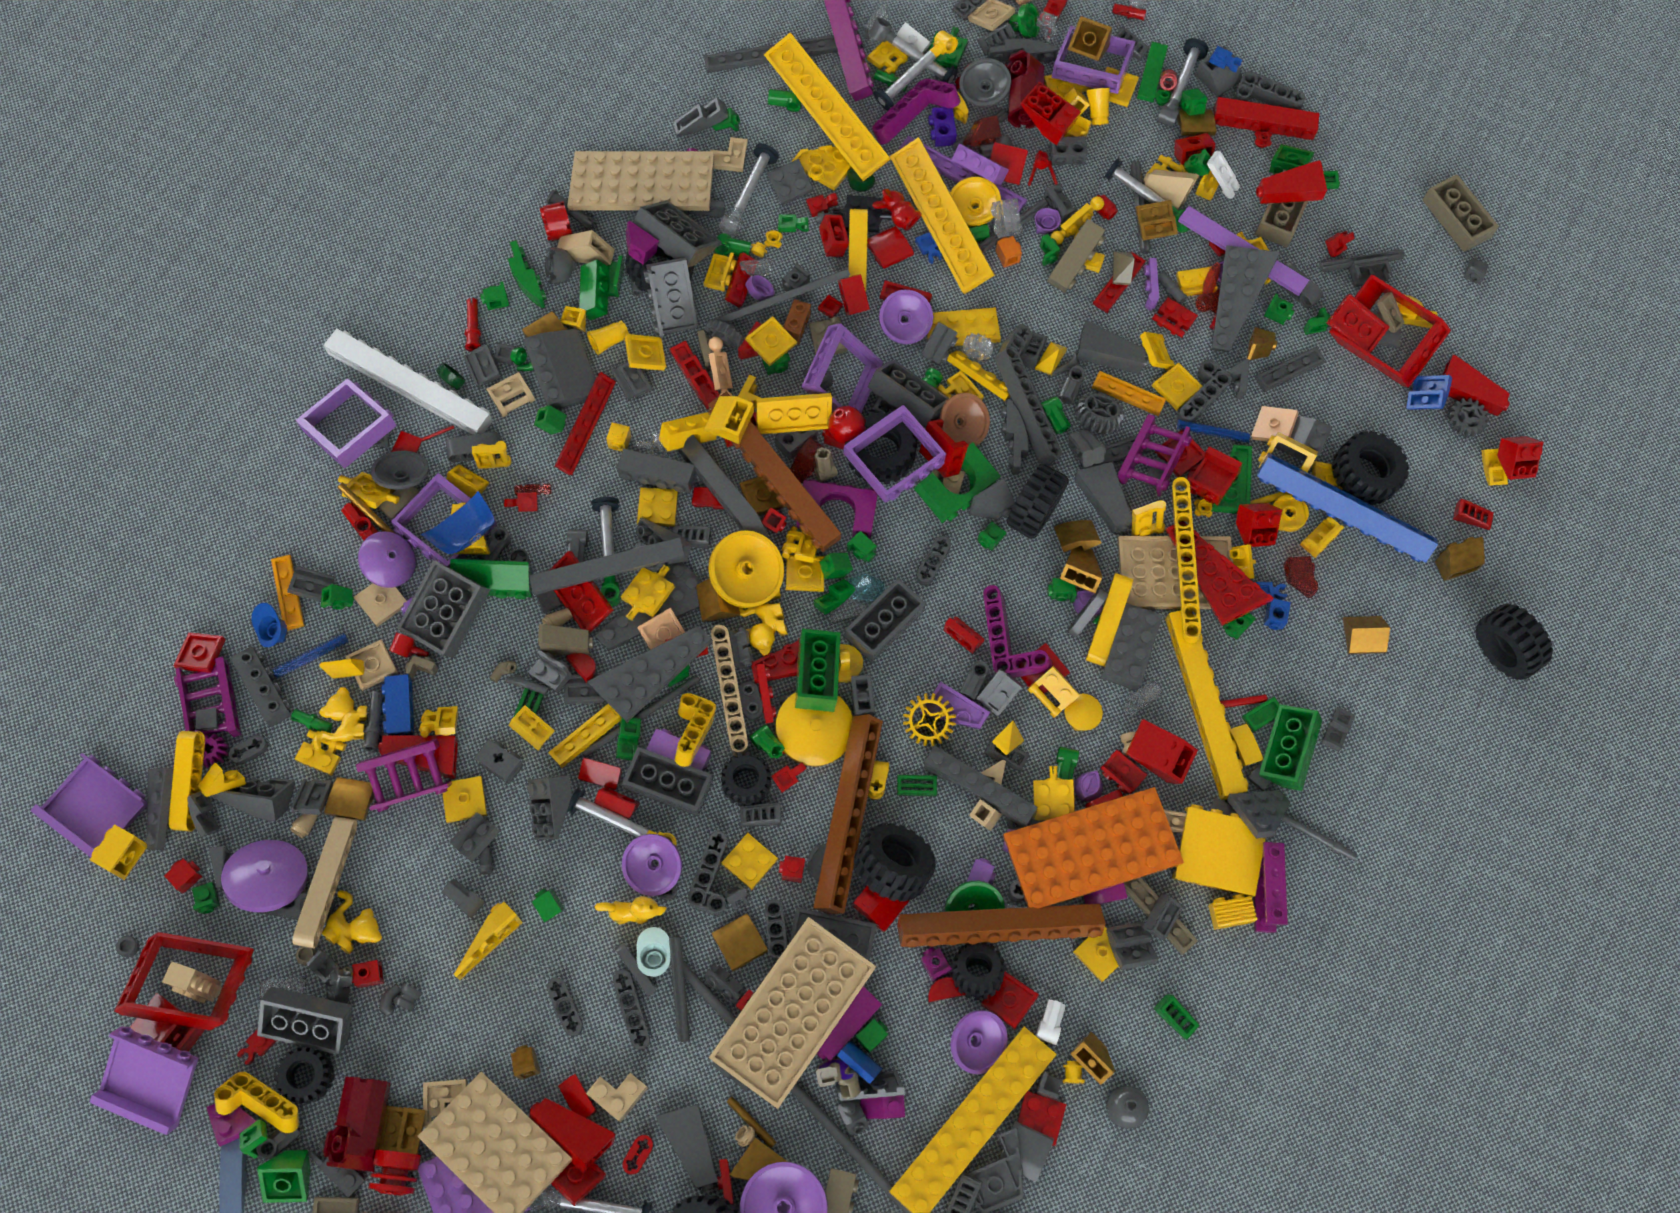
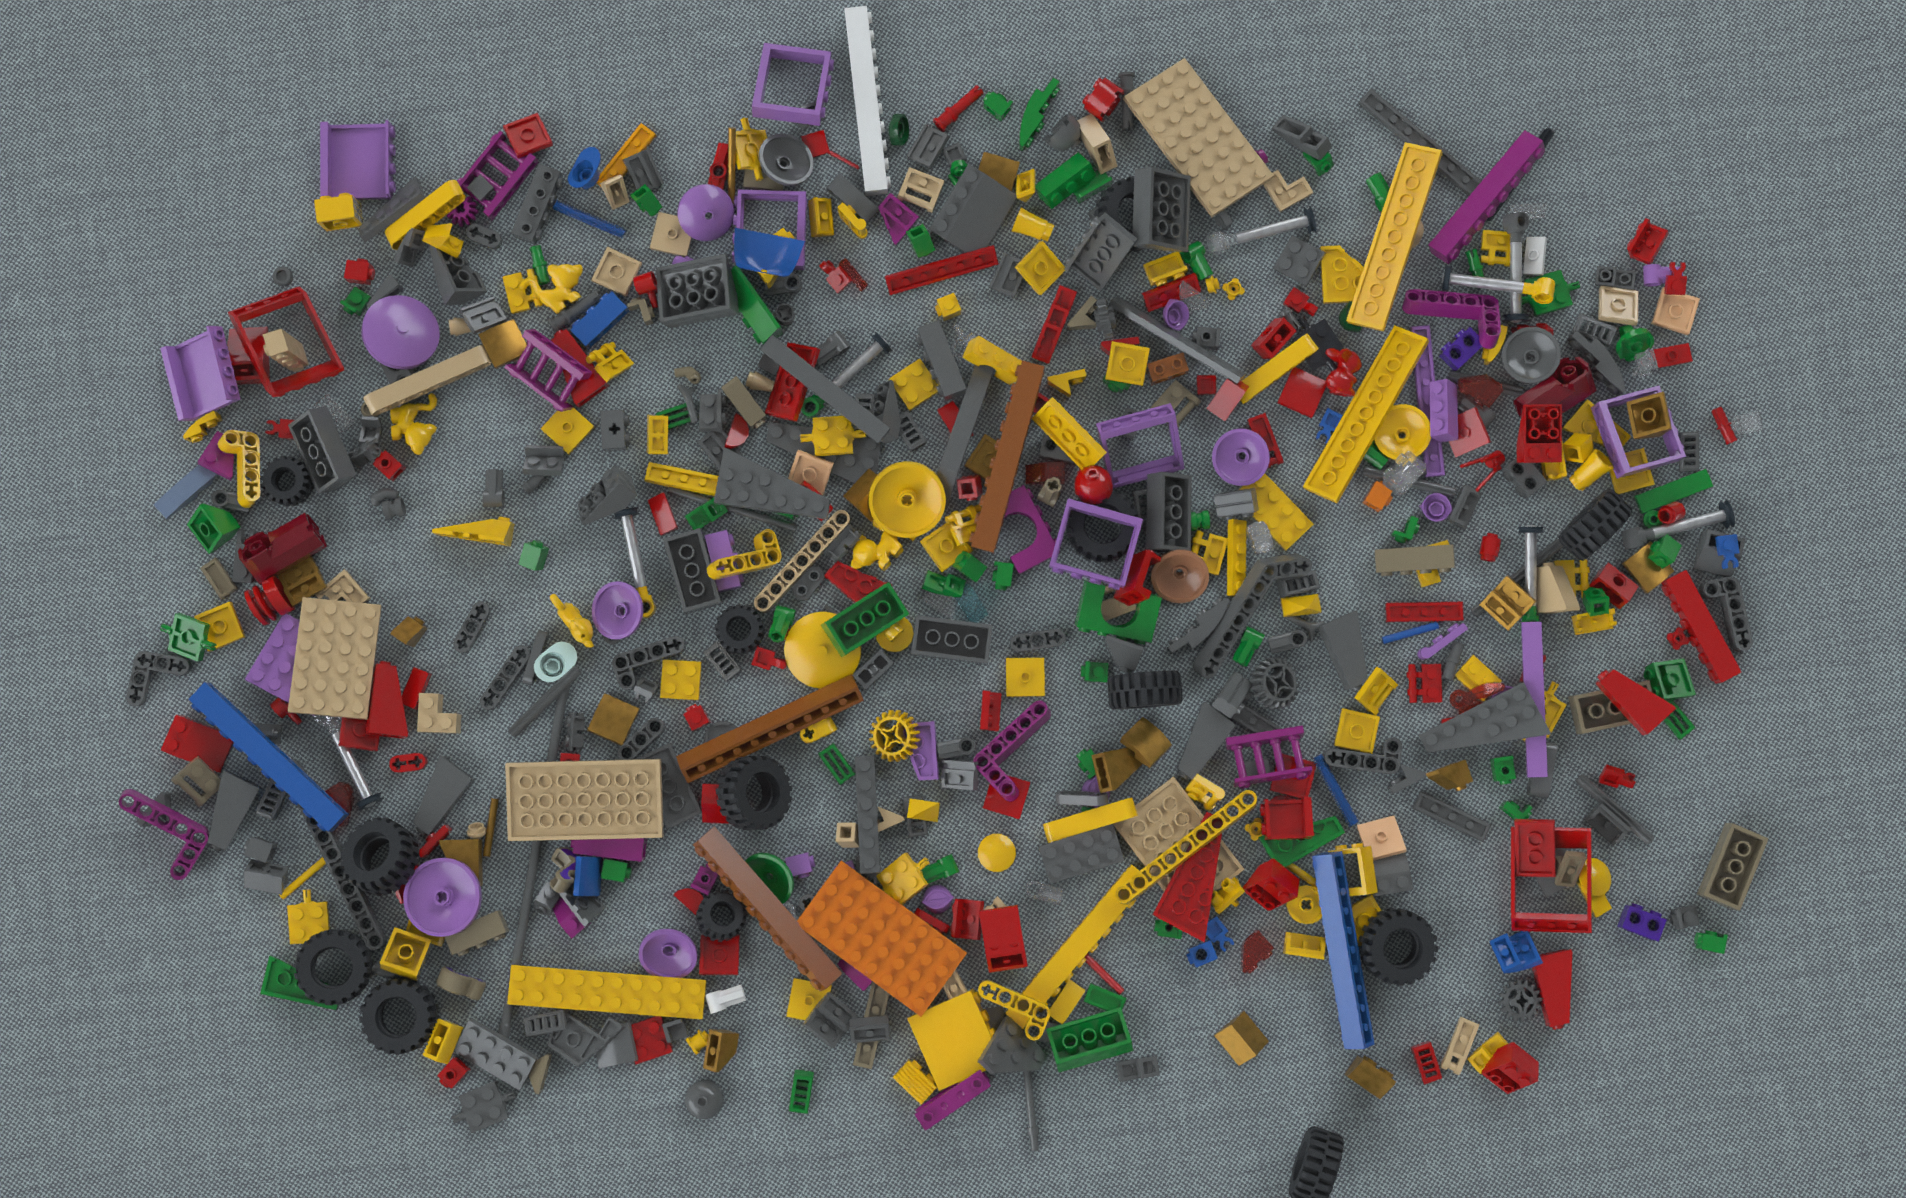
camera: 60 degrees right, 15 degrees up
(190, 1128) = (197, 430): none -> yellow slope
(253, 1137) = (219, 483): green bracket -> none
(307, 615) = (615, 191): none -> tan slope
(343, 668) = (596, 254): yellow slope -> none
(516, 425) = (897, 217): none -> magenta wing
(616, 802) = (649, 544): red slope -> none
(640, 243) = (1123, 191): magenta slope -> none
(719, 366) = (1071, 342): light nougat plate -> none
(730, 418) = (1018, 389): yellow slope -> none
(766, 693) = (819, 592): red plate -> none
(789, 223) = (1259, 290): green plate -> none
(816, 168) = (1324, 272): yellow plate -> none
(956, 590) = (1025, 677): none -> yellow plate
(1058, 687) = (998, 820): yellow plate -> none
(1073, 224) = (1459, 535): yellow plate -> none
(1122, 267) = (1438, 605): dark tan slope -> none
(1129, 298) = (1410, 632): none -> blue bar
(1129, 393) = (1319, 694): light orange tile -> none
(1143, 123) = (1595, 524): none -> black tyre
(1223, 174) = (1602, 629): white hinge -> none
(1223, 780) = (1012, 1004): none -> yellow beam
(1462, 298) = (1640, 927): none -> dark purple brick
(1476, 482) = (1460, 1045): none -> tan plate
(1508, 264) = (1711, 942): none -> green brick

